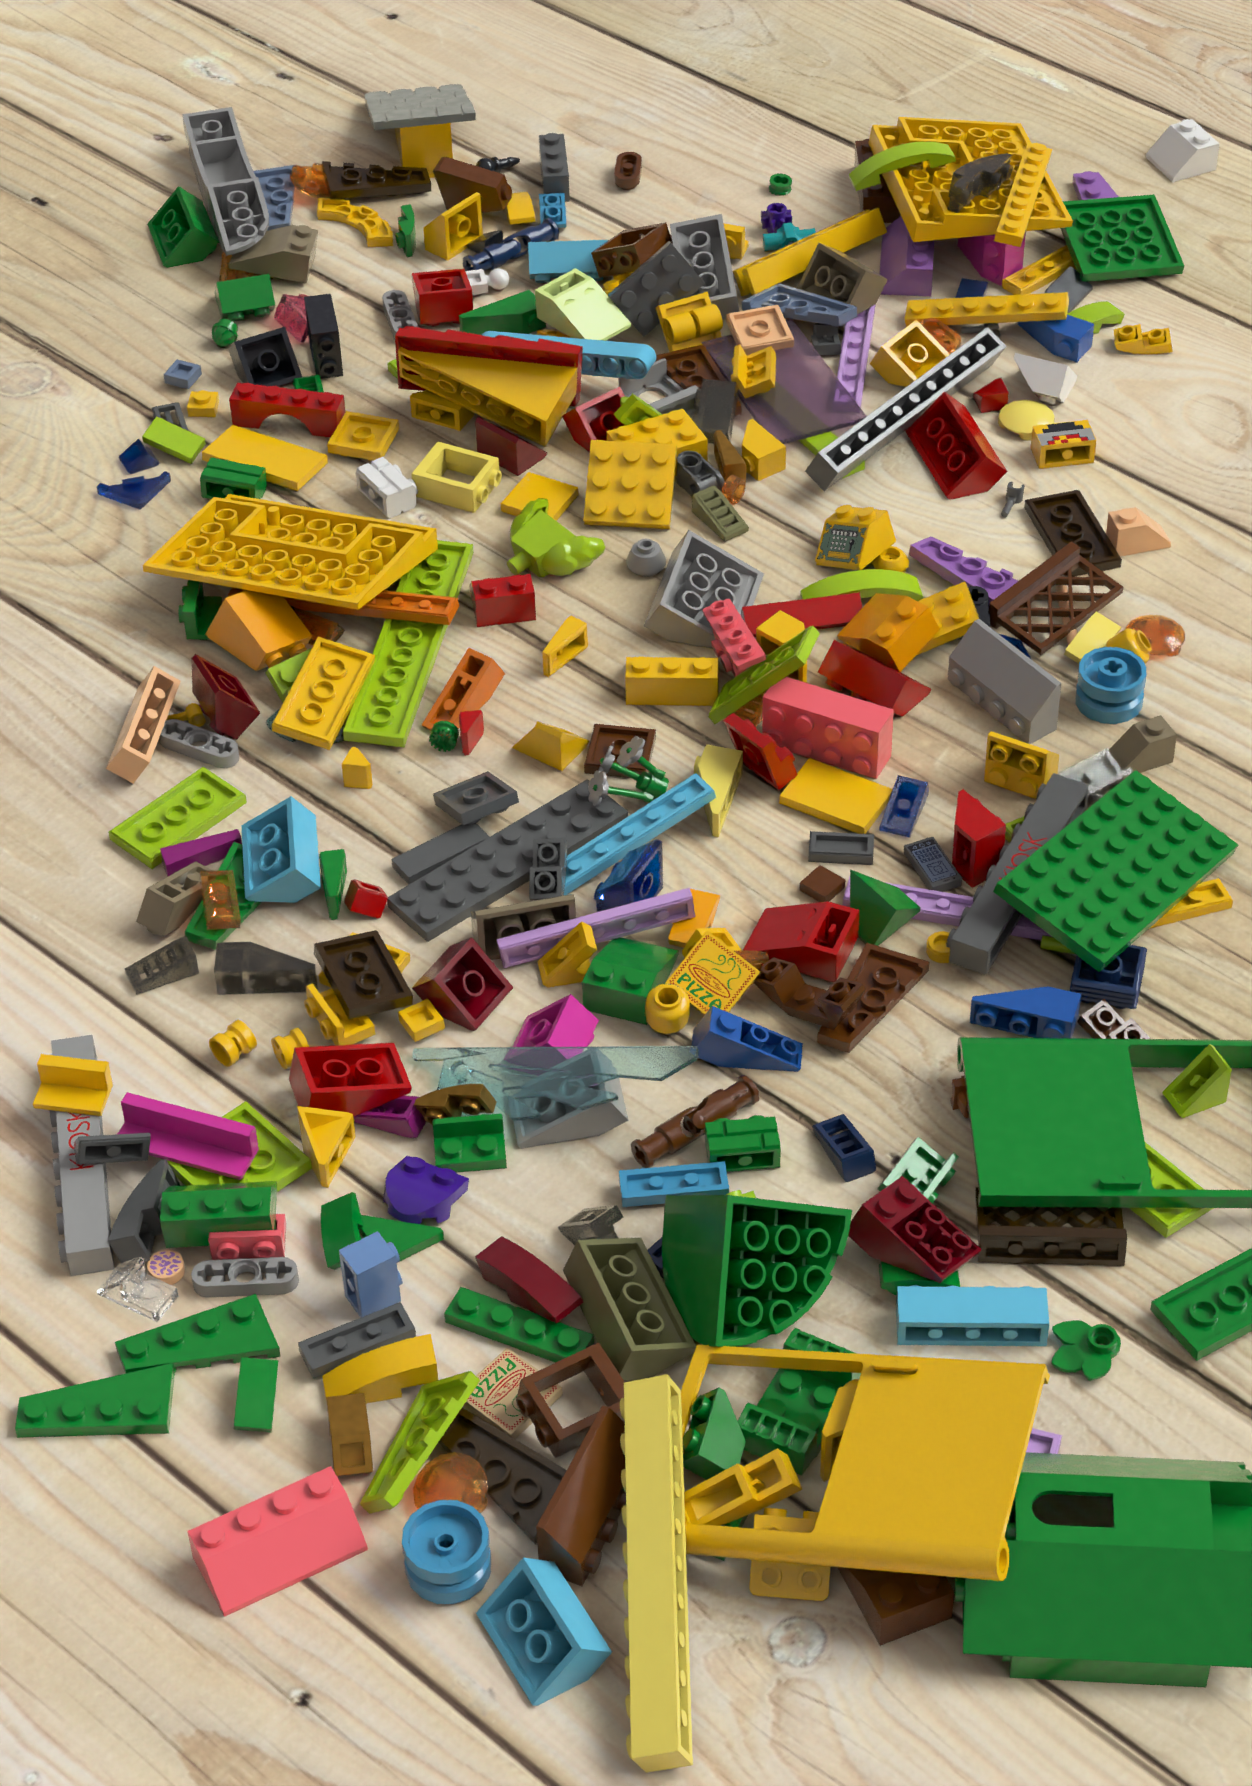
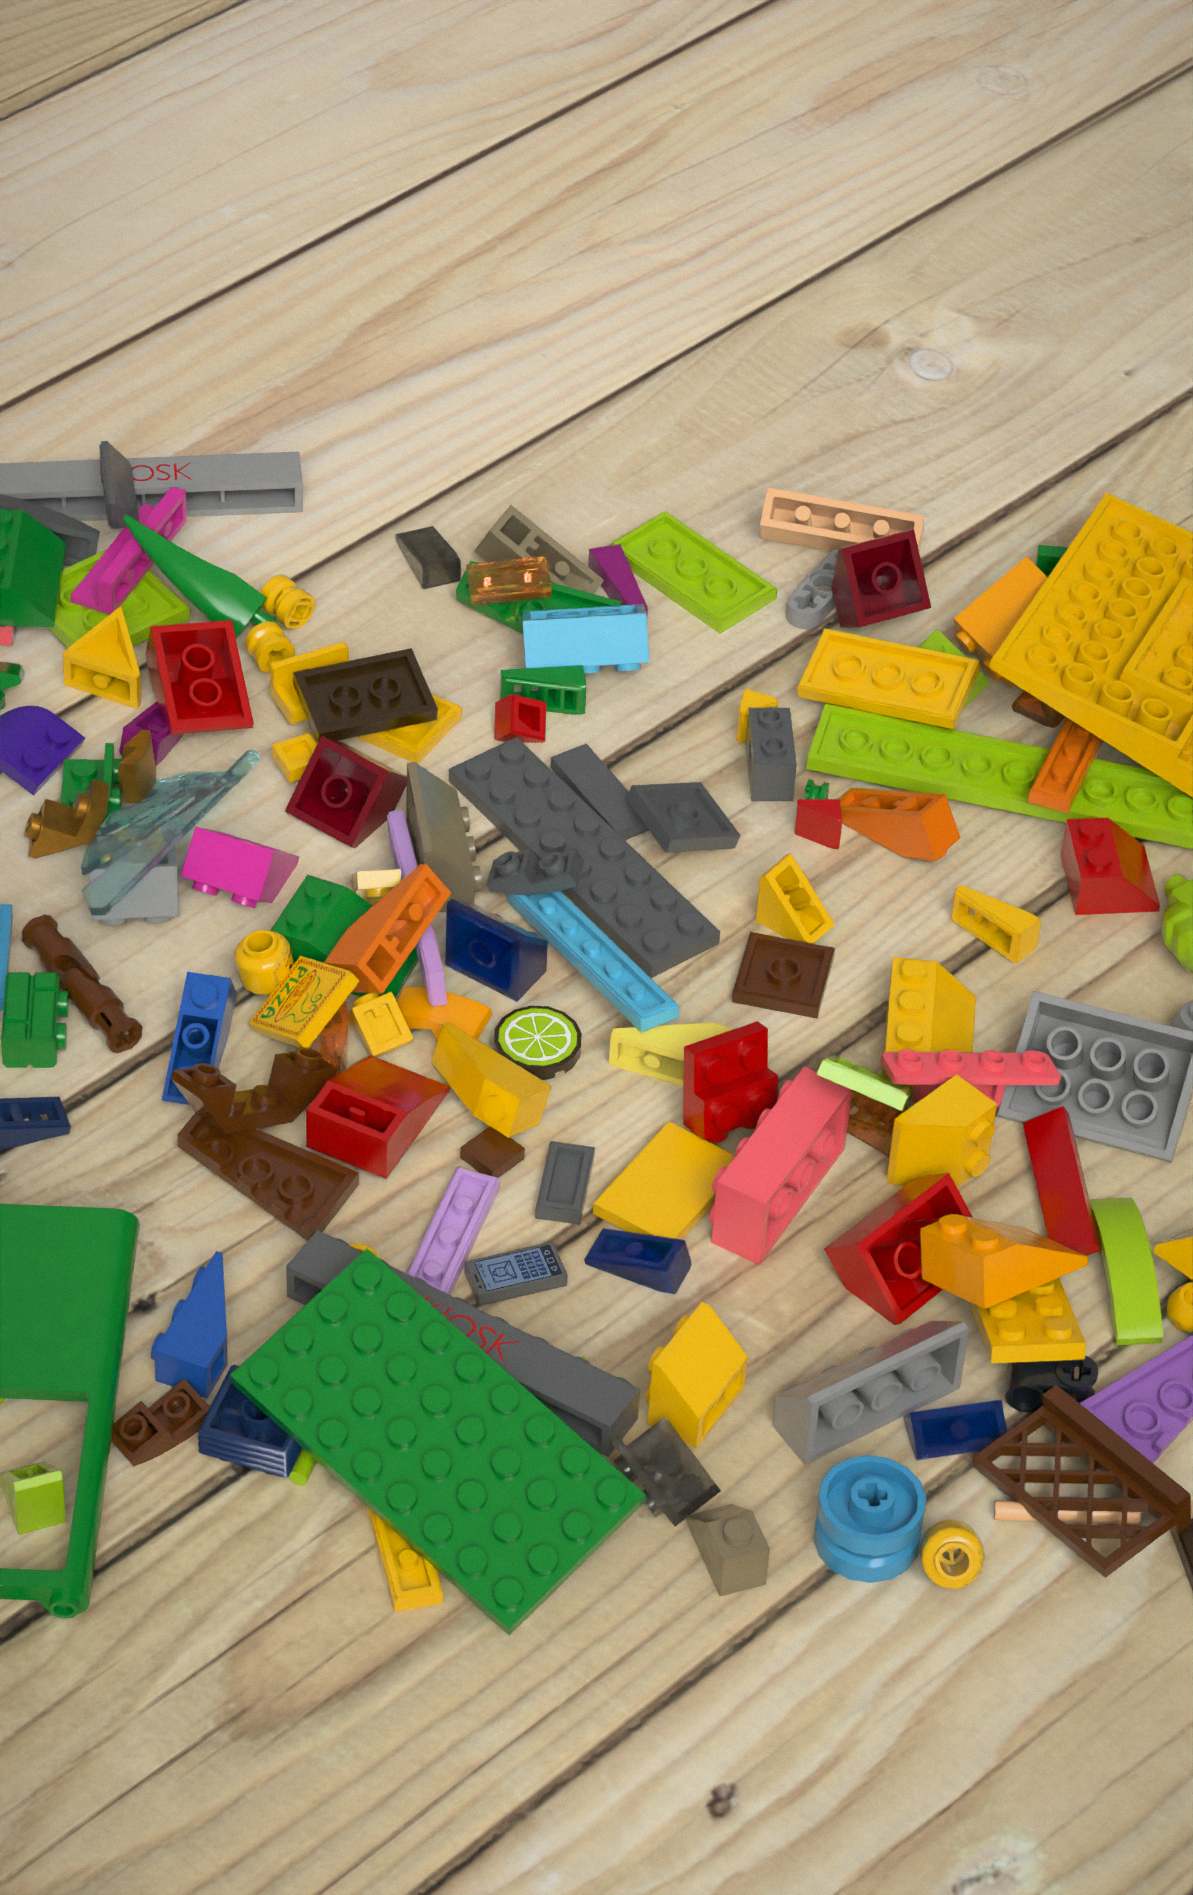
camera: 90 degrees right, 0 degrees up
(73, 1085) = (212, 459): yellow panel -> none
(240, 1075) = (208, 587): none -> green piece
(260, 970) = (408, 612): clear smoke slope -> none
(402, 756) = (770, 754): none -> dark grey brick
(522, 1142) = (66, 827): none -> pearl gold slope
(651, 783) = (697, 988): plant -> none
(665, 927) = (390, 930): none -> orange slope
(709, 868) = (539, 1040): none -> tile
(768, 880) = (490, 1083): none -> yellow slope
(880, 907) = (422, 1193): green slope -> none
(976, 839) = (533, 1287): red slope -> none
(1091, 636) = (1002, 1526): light yellow slope -> none
(1162, 632) = (1011, 1615): clear orange dish -> none

